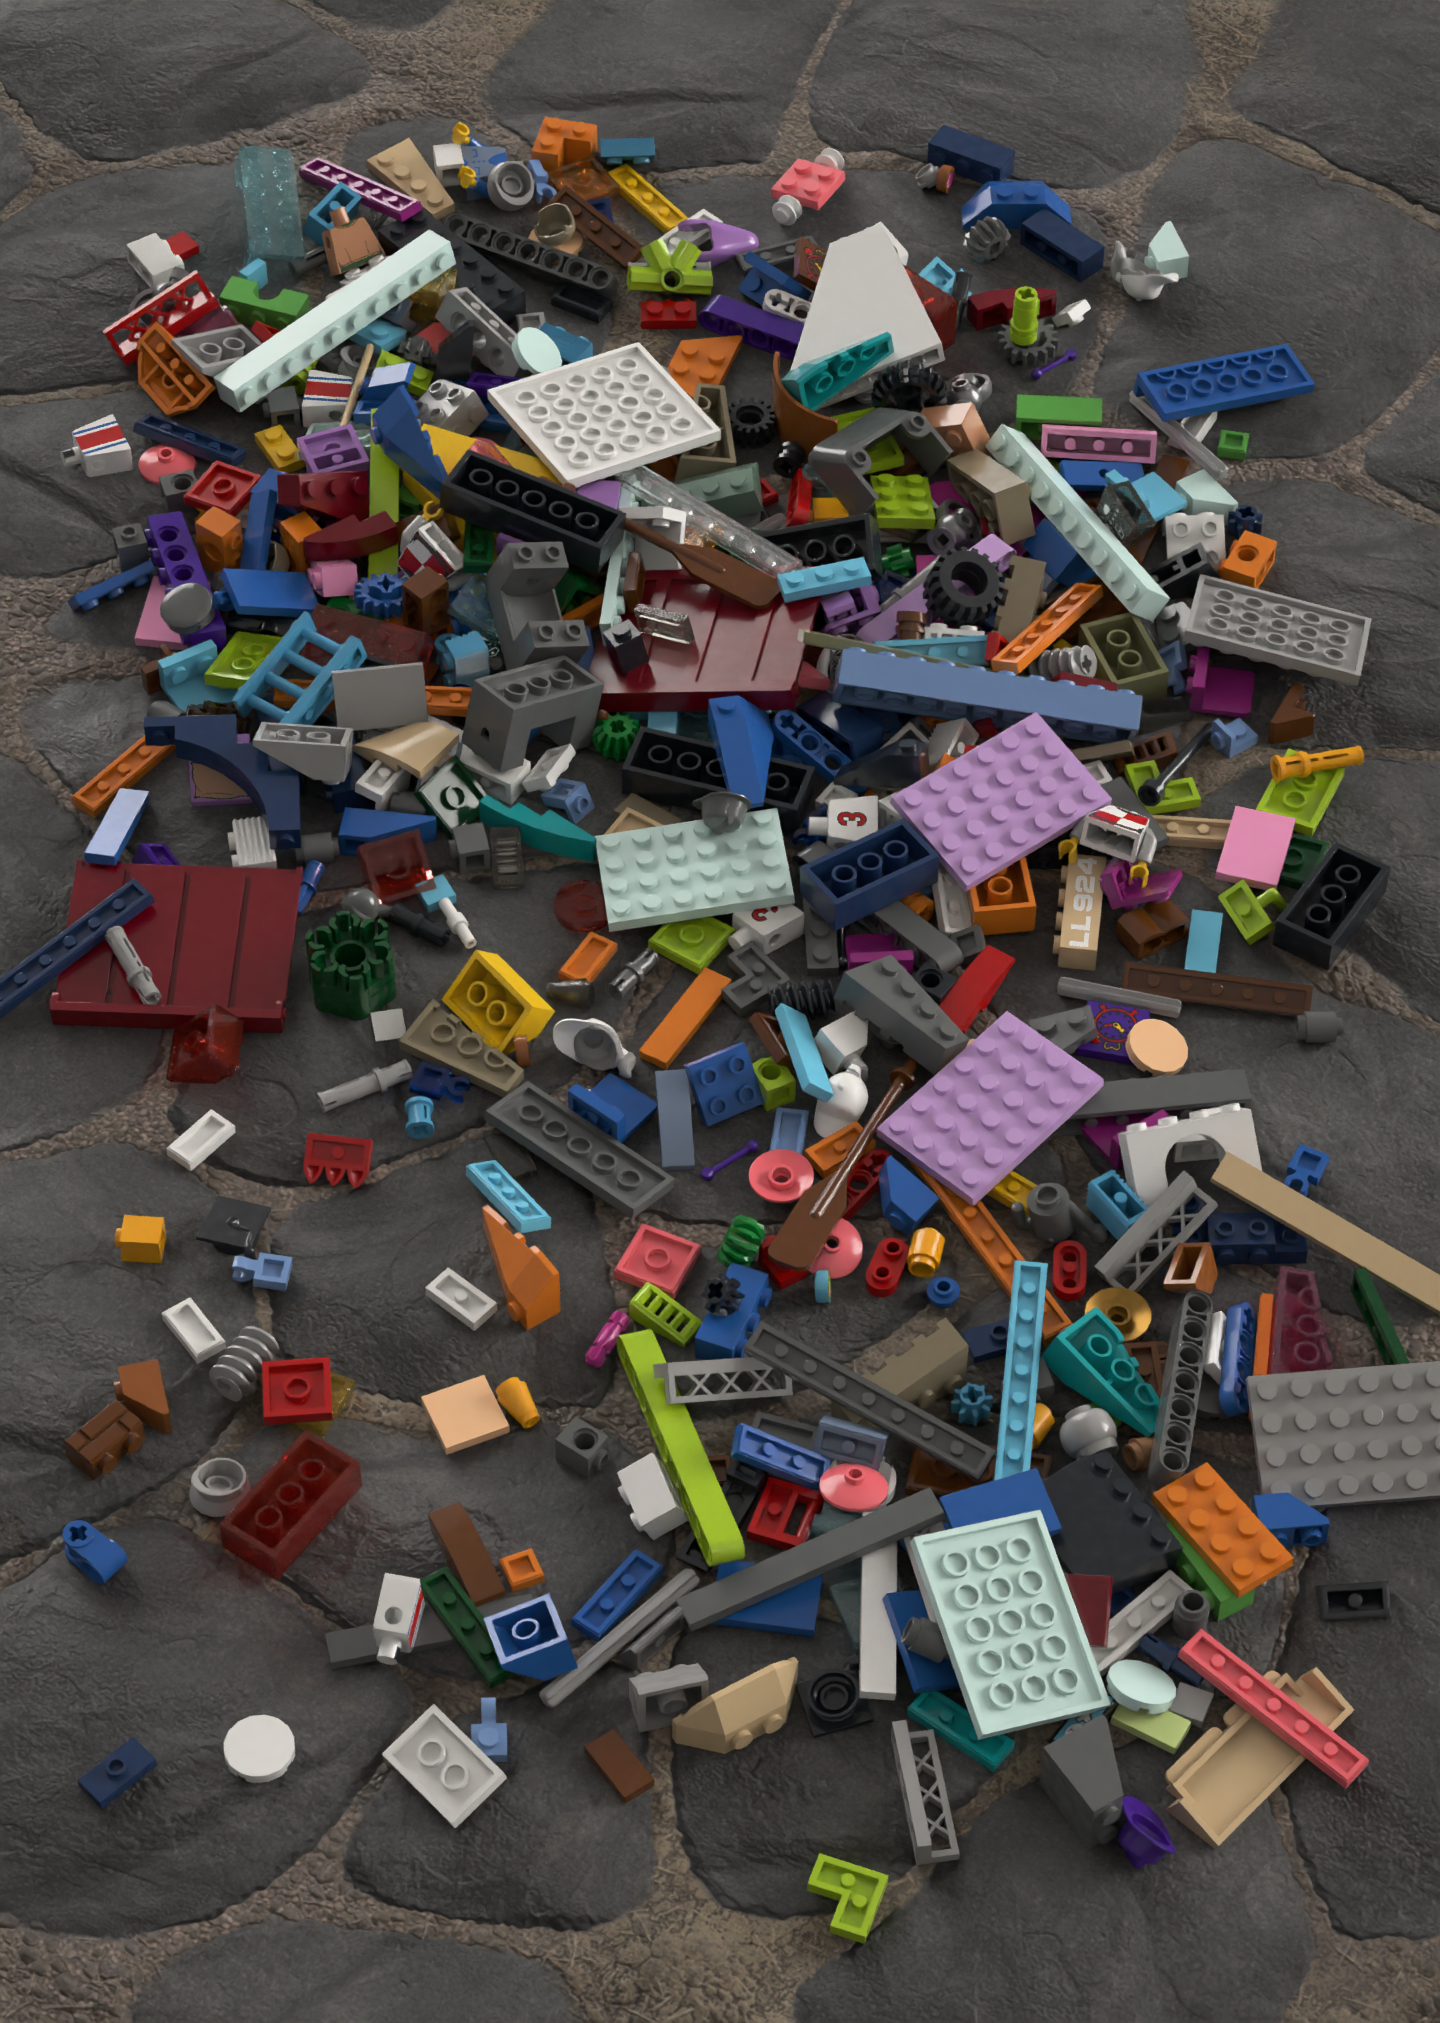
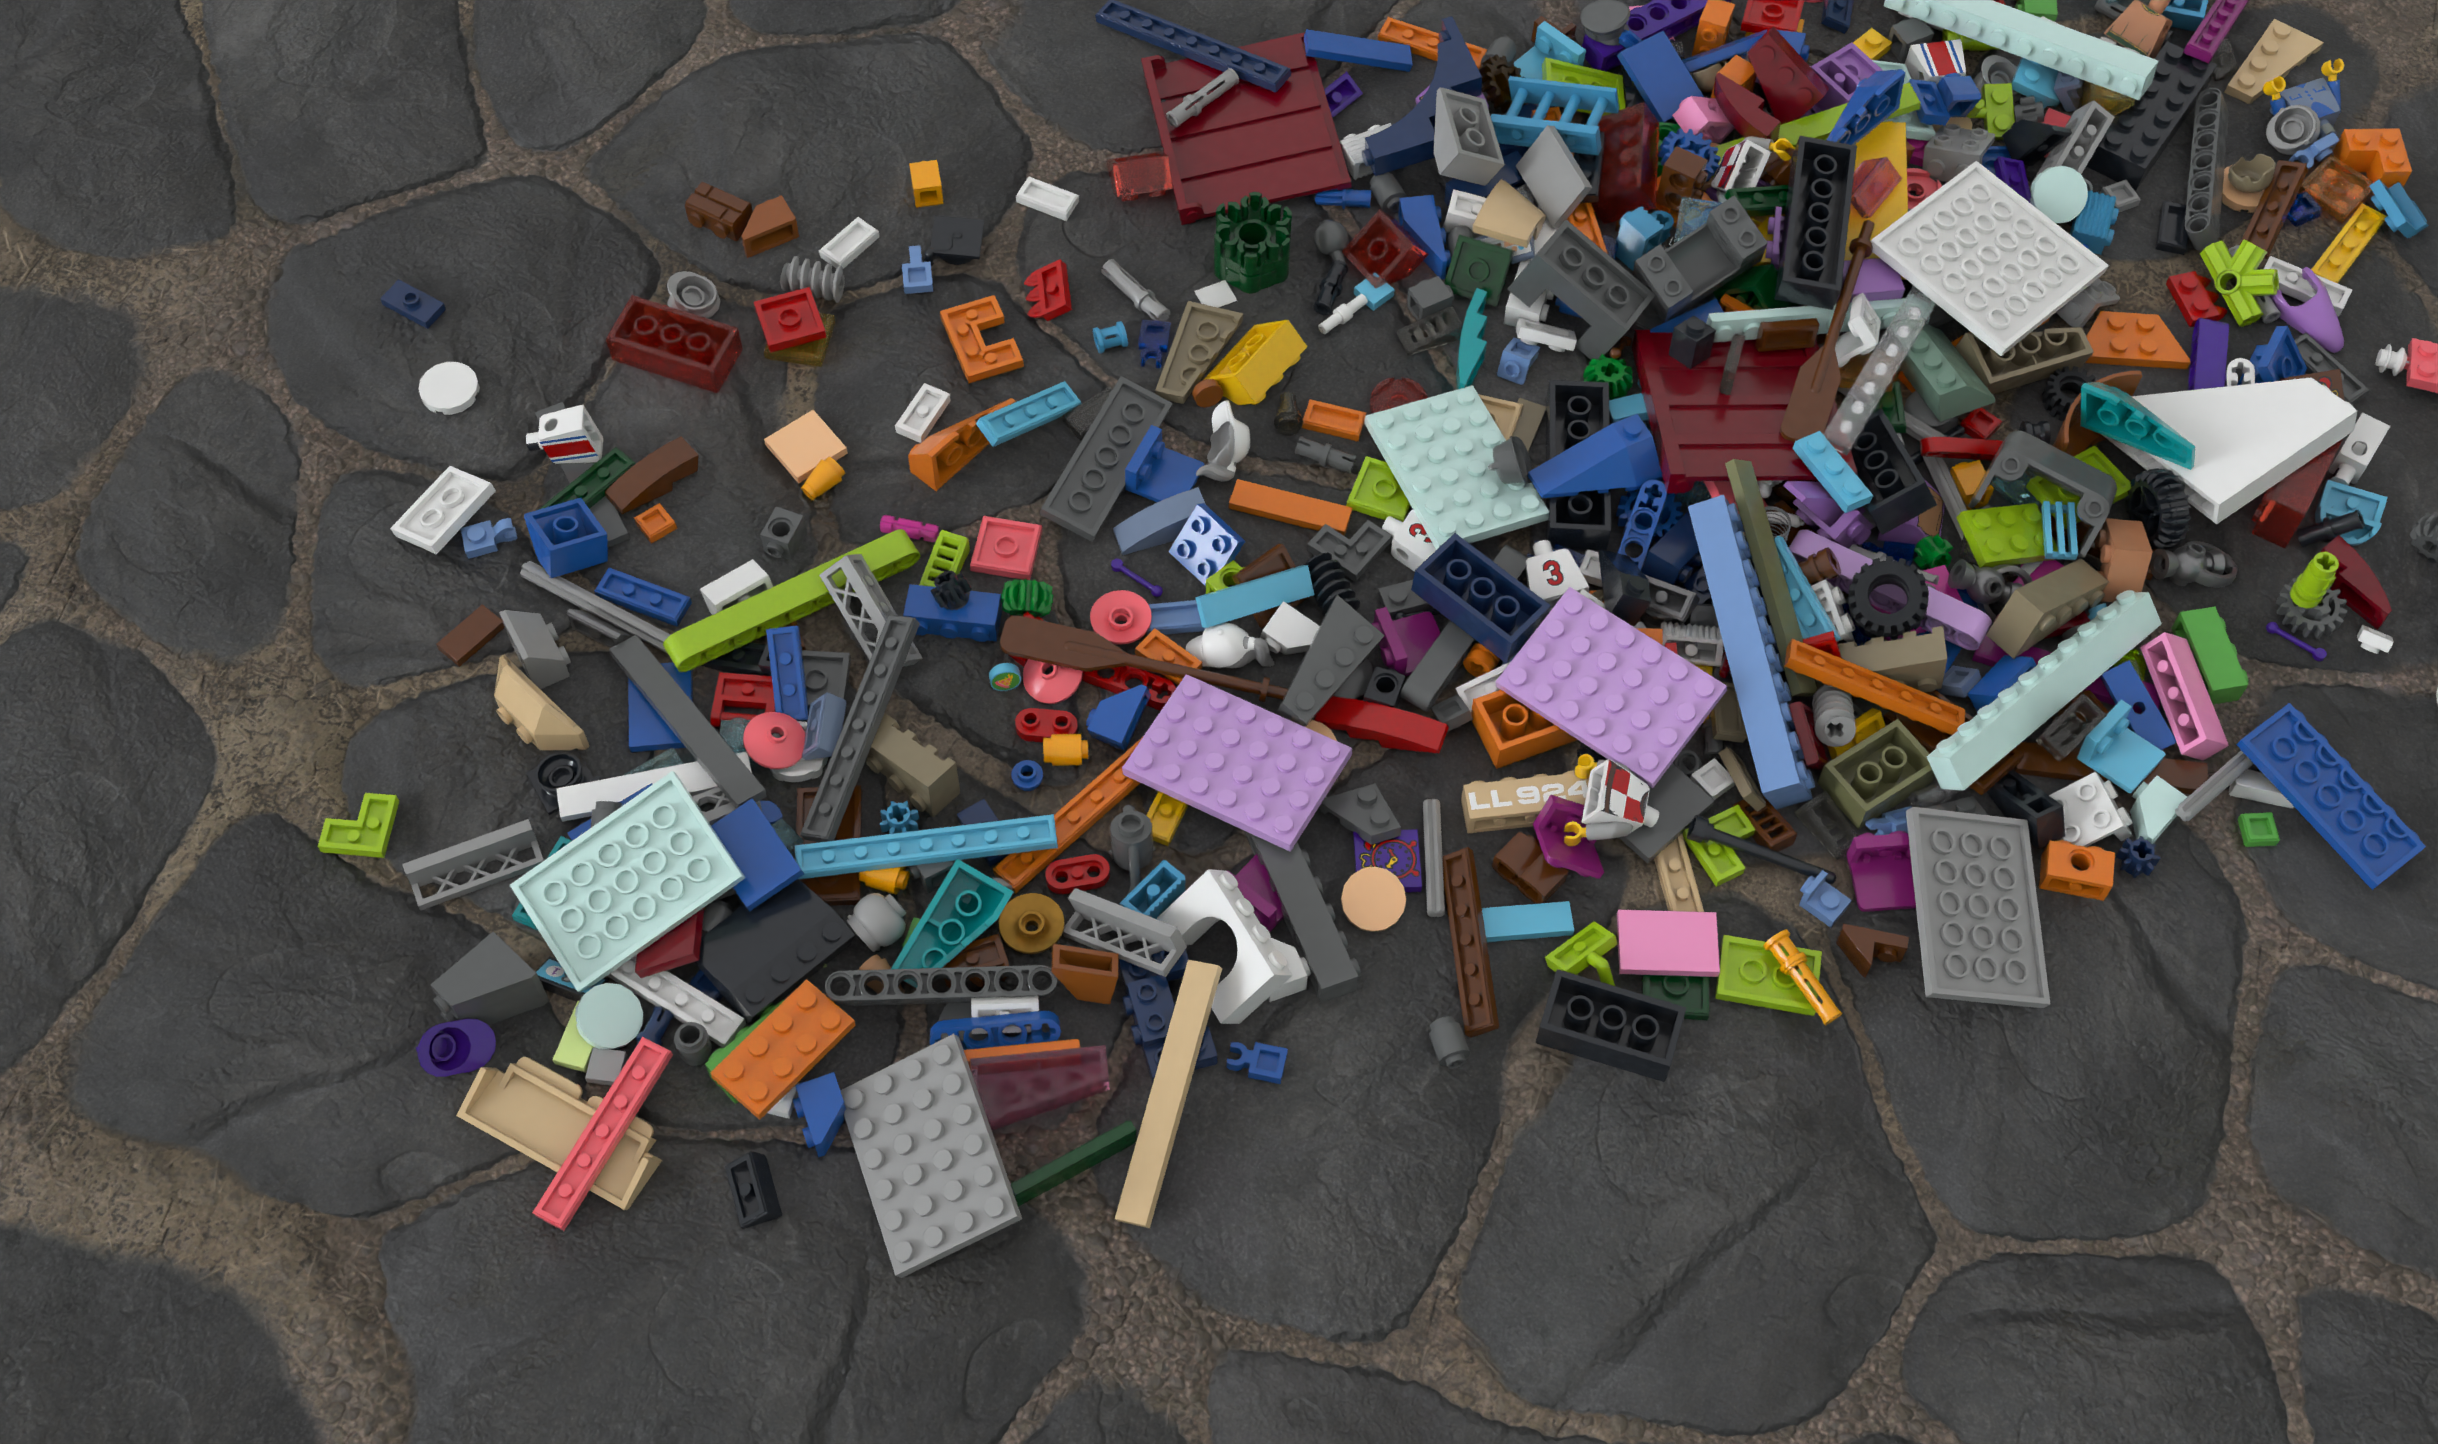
camera: 75 degrees right, 10 degrees up
(92, 1551) = (609, 231): blue piece -> none
(356, 1243) = (963, 329): none -> orange plate
(358, 380) = (1977, 76): tan axle -> none
(447, 163) = (2301, 72): white brick -> none
(917, 460) = (2059, 509): none -> medium azure tile

